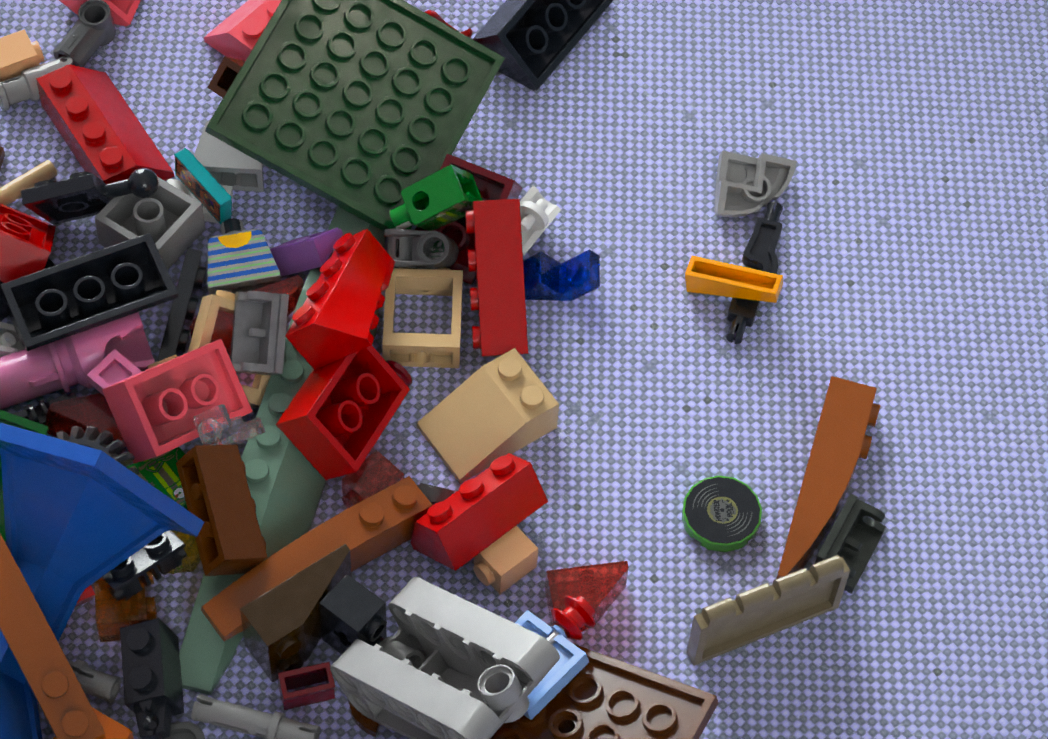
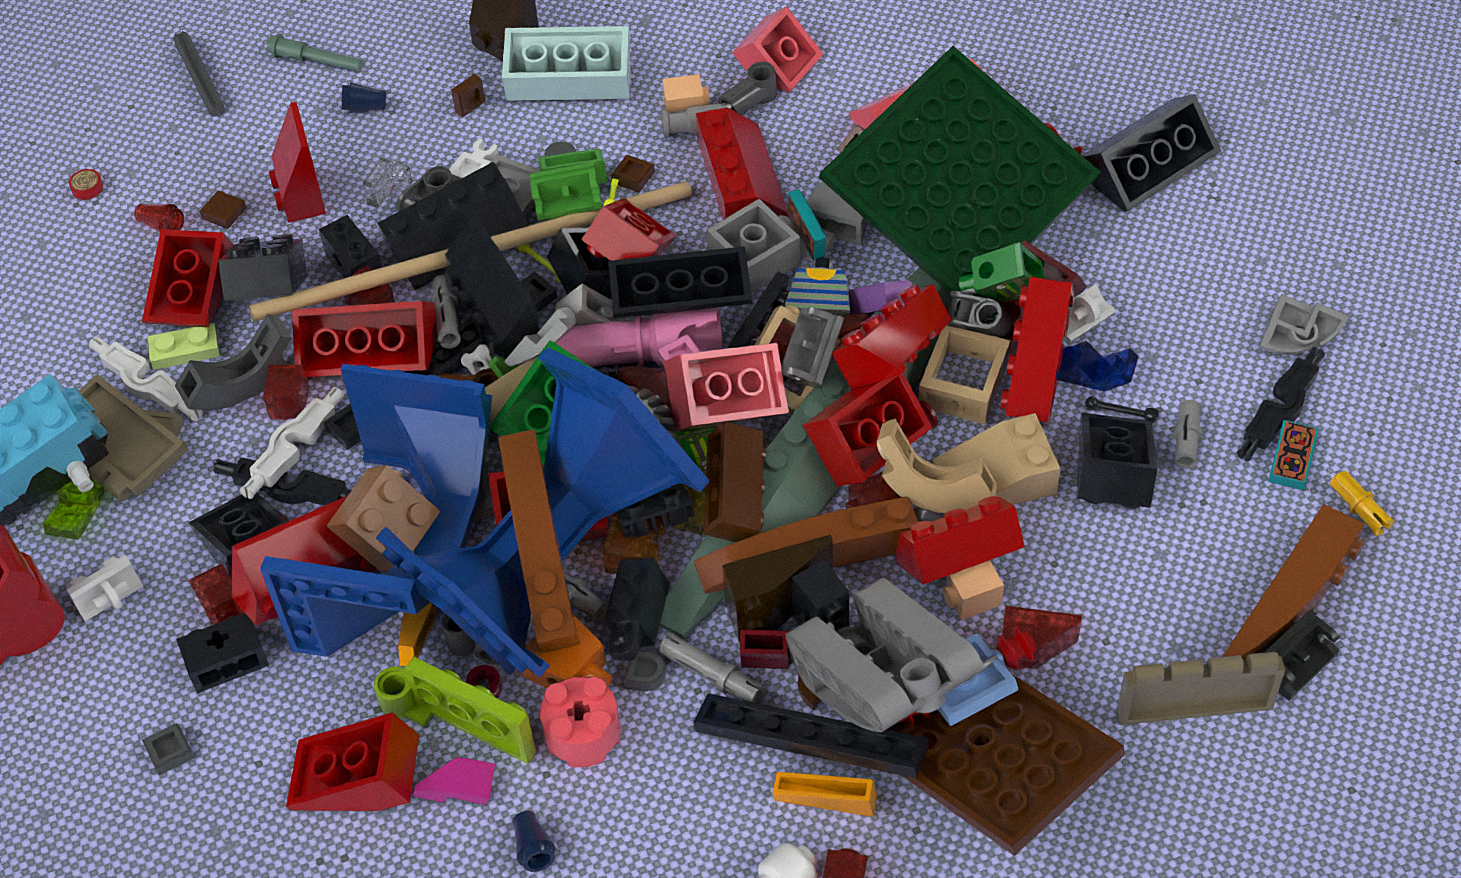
camera: 25 degrees right, 5 degrees down
(84, 194) = (700, 209): black plate -> none
(218, 429) = (750, 413): clear bracket -> none
(434, 456) = (927, 484): none -> tan arch
(609, 377) = (1116, 461): none -> black slope
(626, 316) = (1149, 414): none -> black hinge
(676, 343) = (1188, 434): none -> light grey pin
(721, 513) = (1185, 600): black tile -> none
(731, 280) = (1255, 403): light orange piece -> none
(784, 328) = (1293, 455): none -> tile
(863, 362) = (1361, 502): none -> yellow axle

